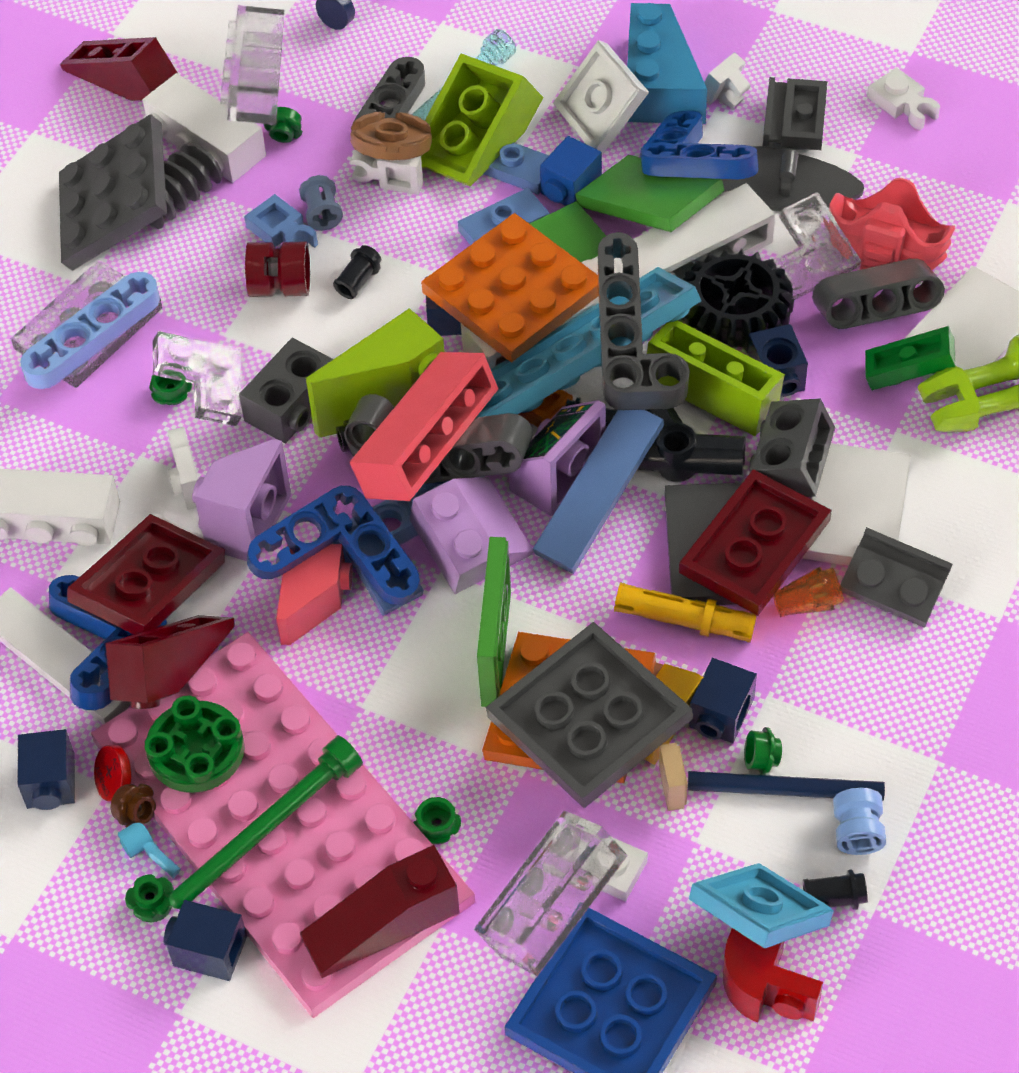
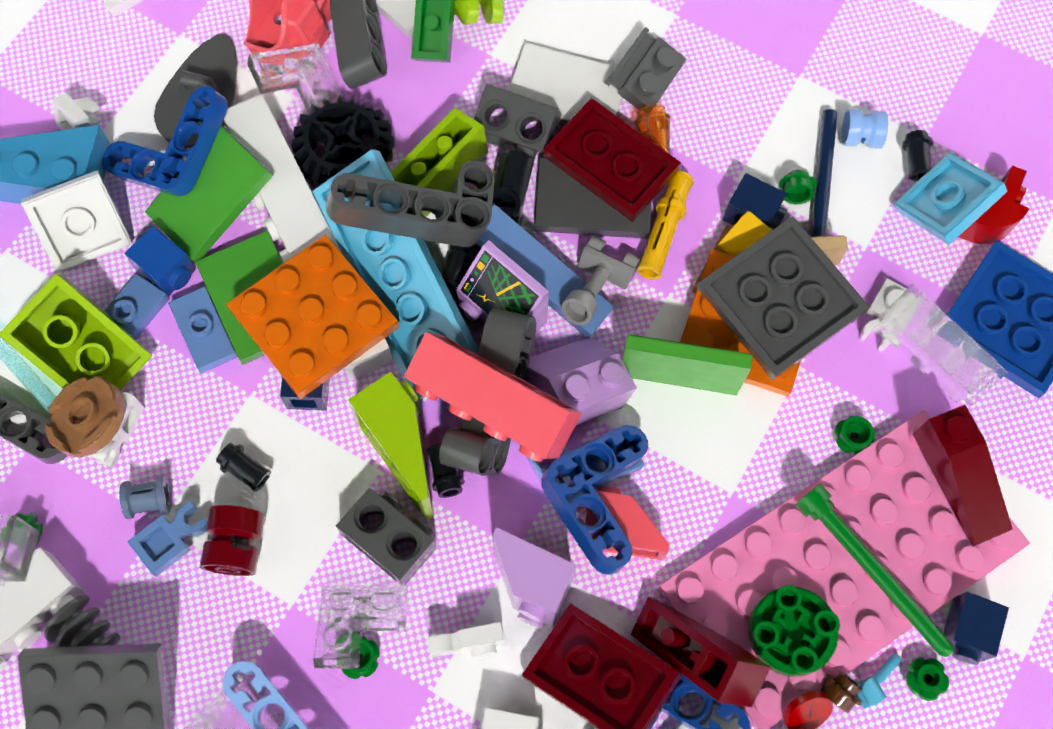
camera: 90 degrees left, 15 degrees up
(635, 542) = (581, 304): none -> light grey bar
(782, 352) = (411, 109): dark blue brick -> none
(795, 113) = (128, 69): dark grey plate -> none

